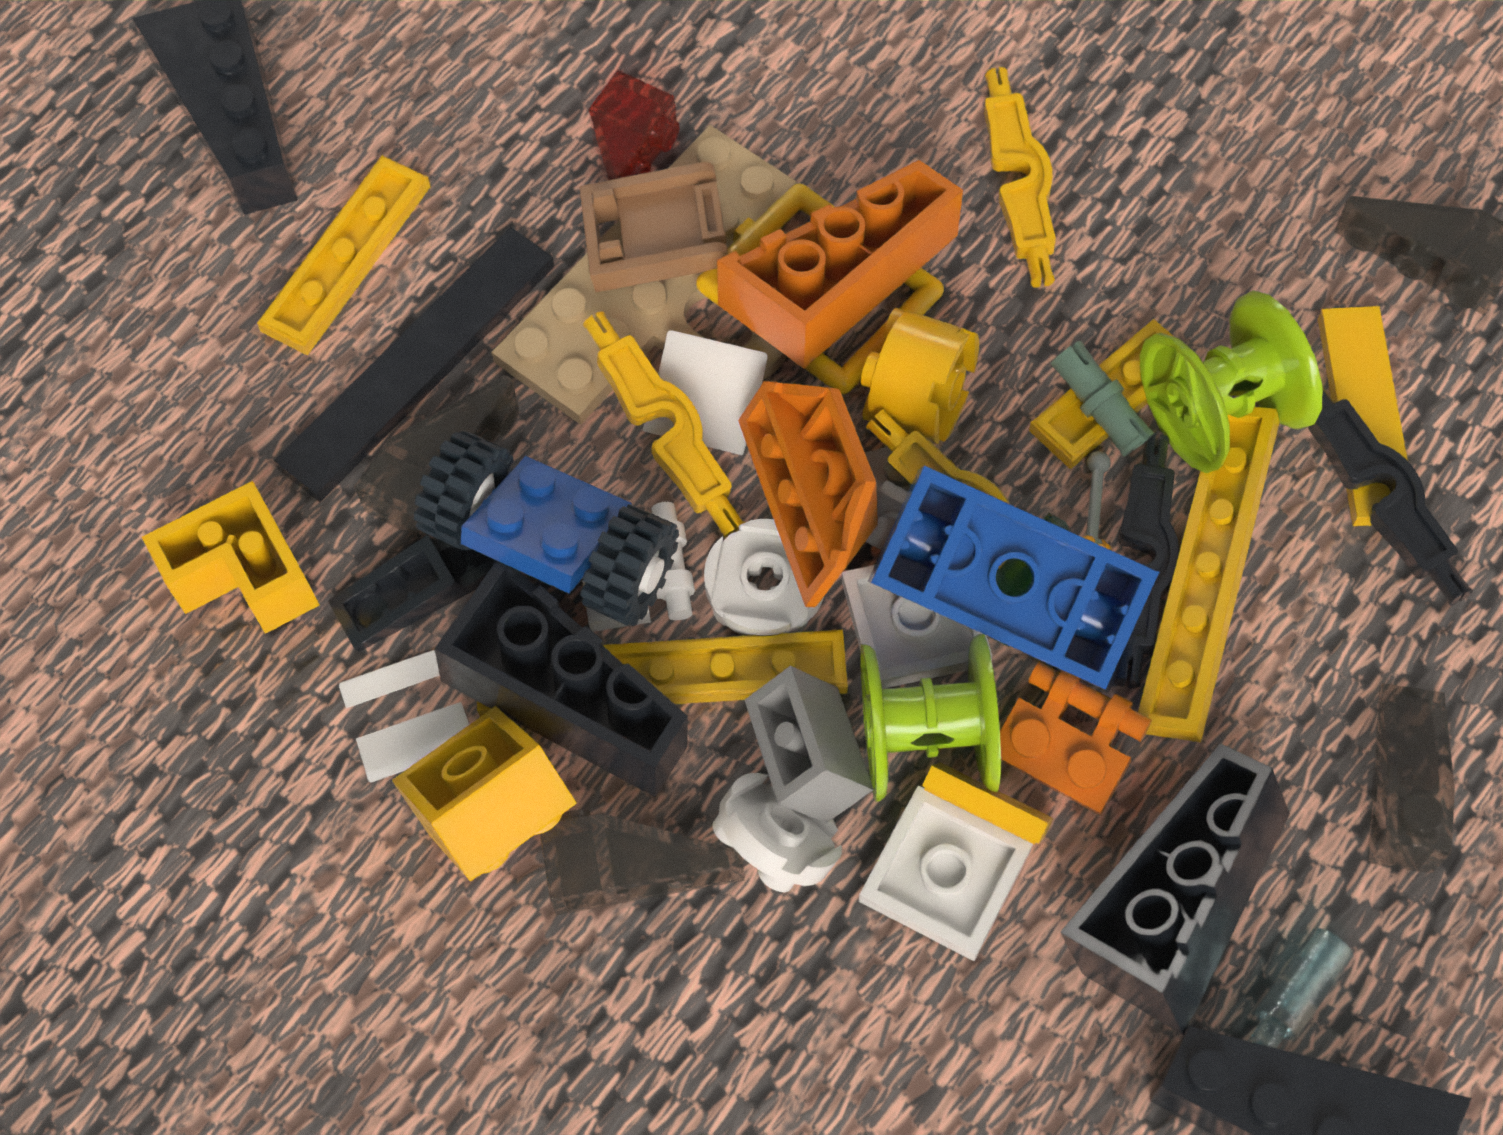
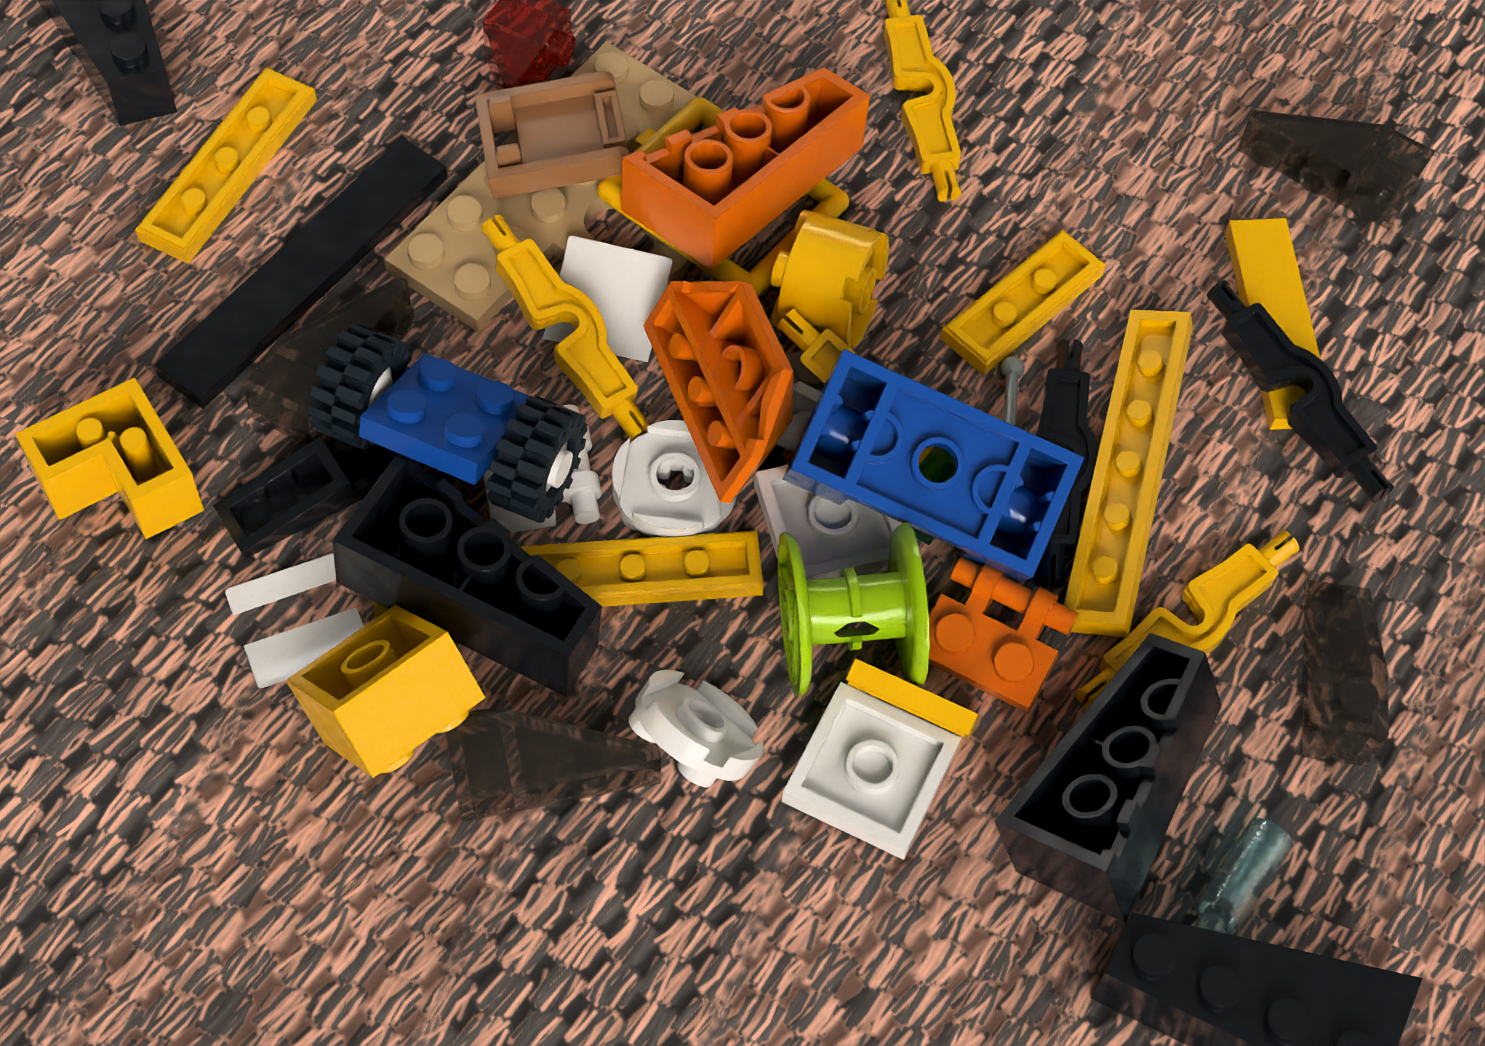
camera: 10 degrees left, 5 degrees down
(808, 745) = (726, 640): light grey brick -> none
(1102, 398) = (1015, 302): sand green pin -> none
(1265, 365) = (1176, 268): lime piece -> none
(1288, 705) = (1213, 601): none -> yellow piece

